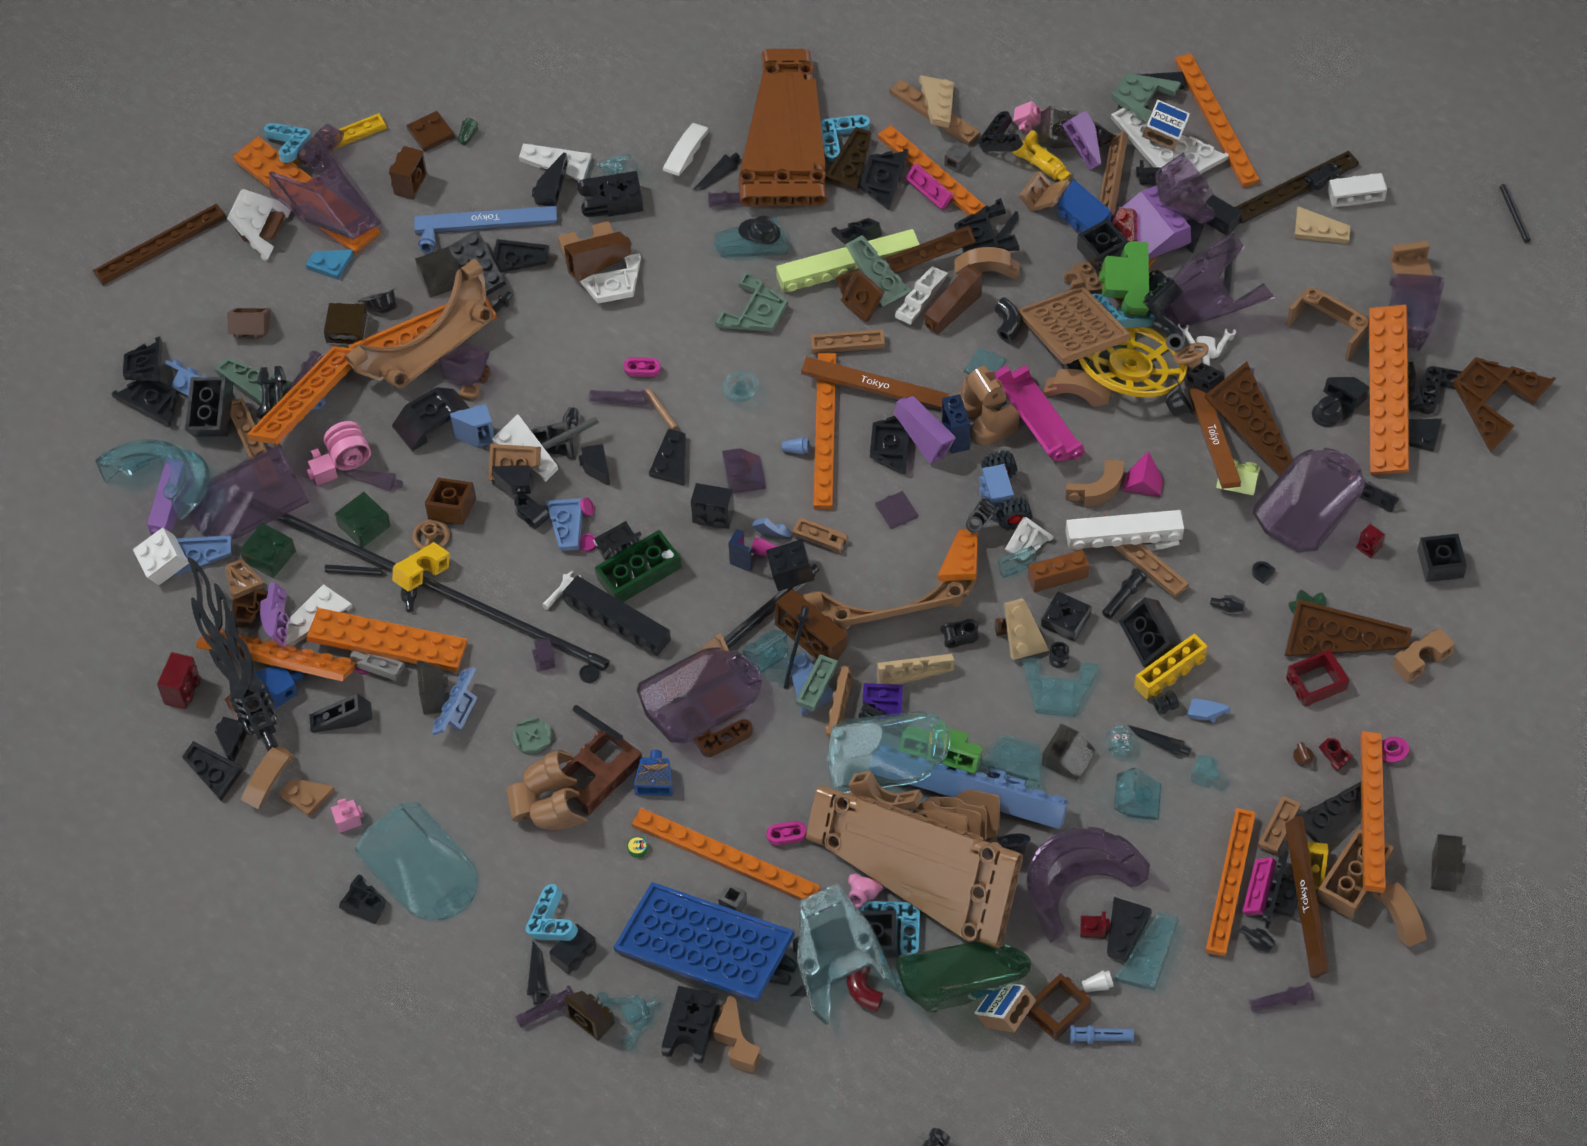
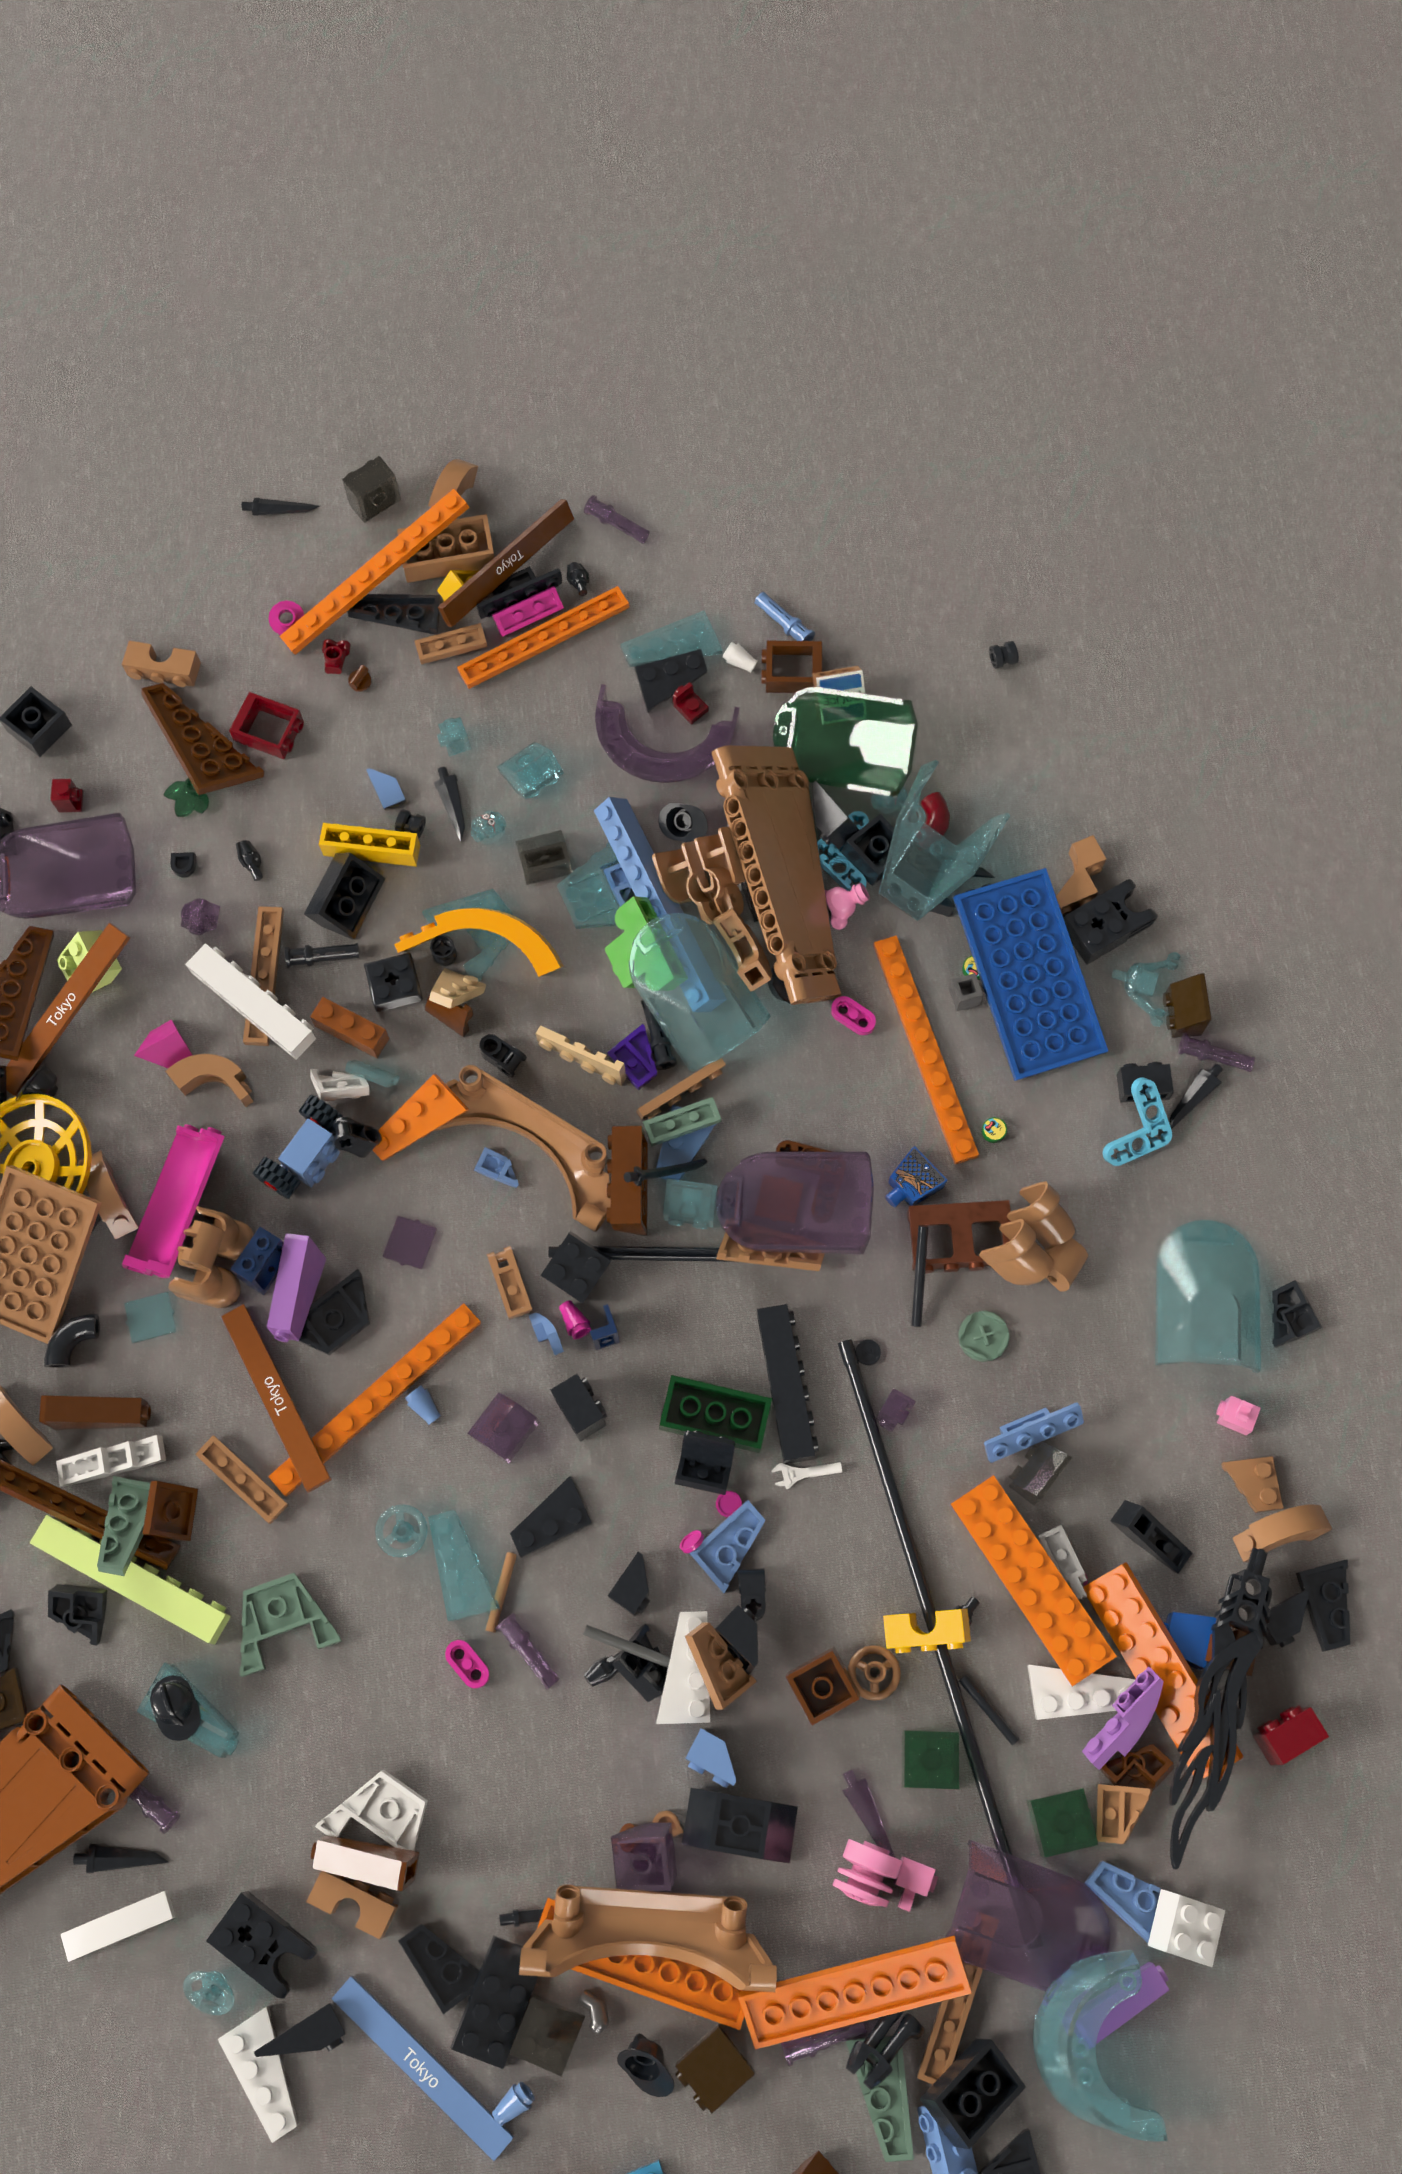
camera: 135 degrees left, 15 degrees up
(425, 301) = (598, 2011): none -> flat silver arm
(693, 398) = (461, 1579): none -> clear light blue wing
(894, 582) = (496, 1167): none -> medium blue slope
(925, 925) = (831, 819): none -> black slope
(1043, 686) = (512, 928): none -> light orange arch
(1211, 548) = (199, 916): none -> clear purple brick
(1498, 804) = (267, 506): none -> black bar

